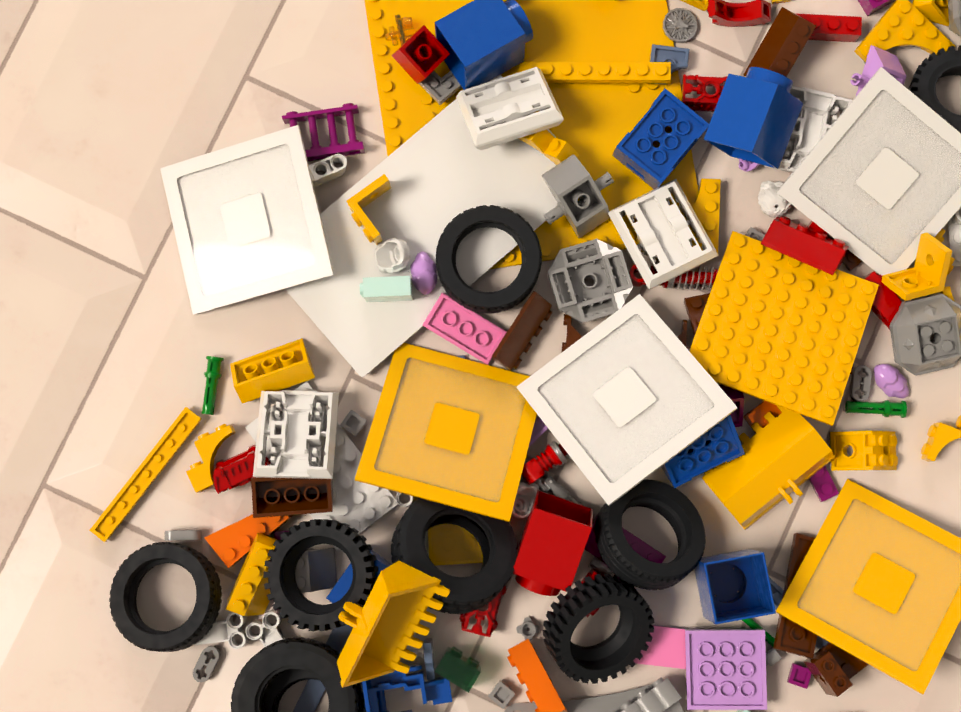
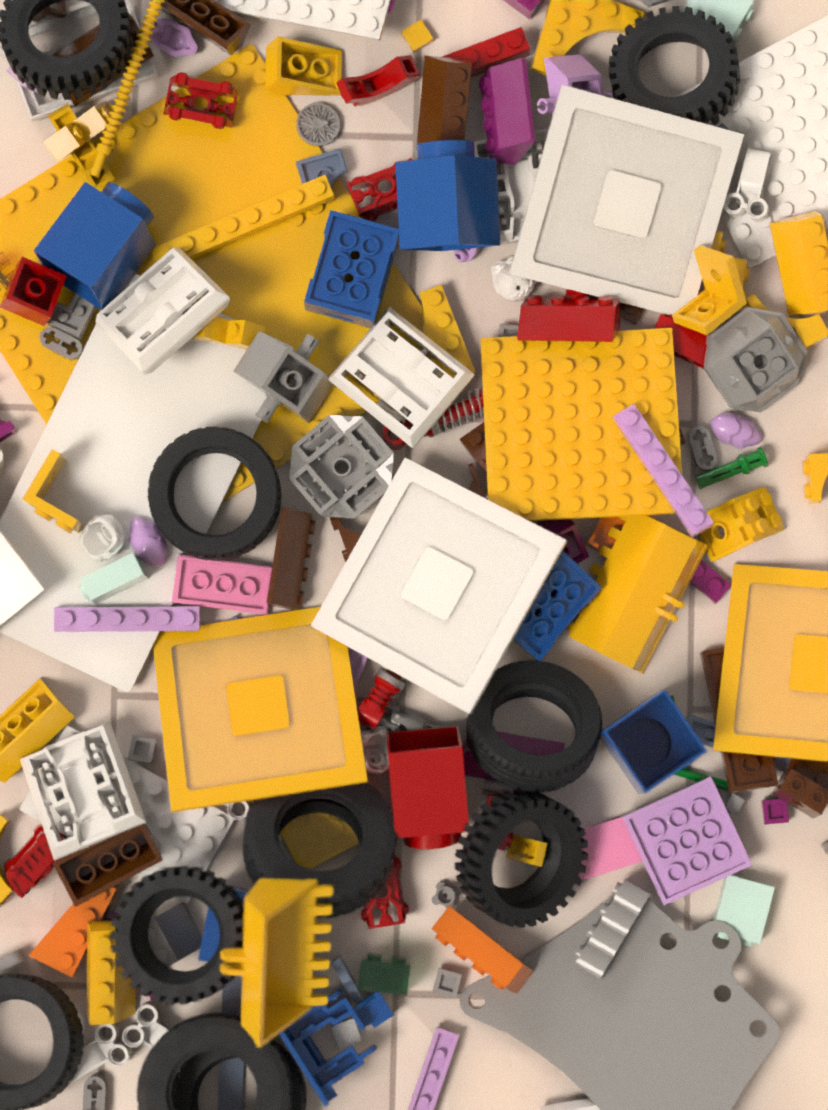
camera: 25 degrees left, 0 degrees up
(384, 323) = (126, 619): none -> lavender plate
(411, 699) = (346, 1033): none -> white tile
(427, 100) = (63, 338): none -> light grey beam
(604, 624) = (527, 850): none -> yellow plate
(825, 73) = (507, 111): none -> magenta slope
(830, 387) = (663, 470): none -> lavender plate

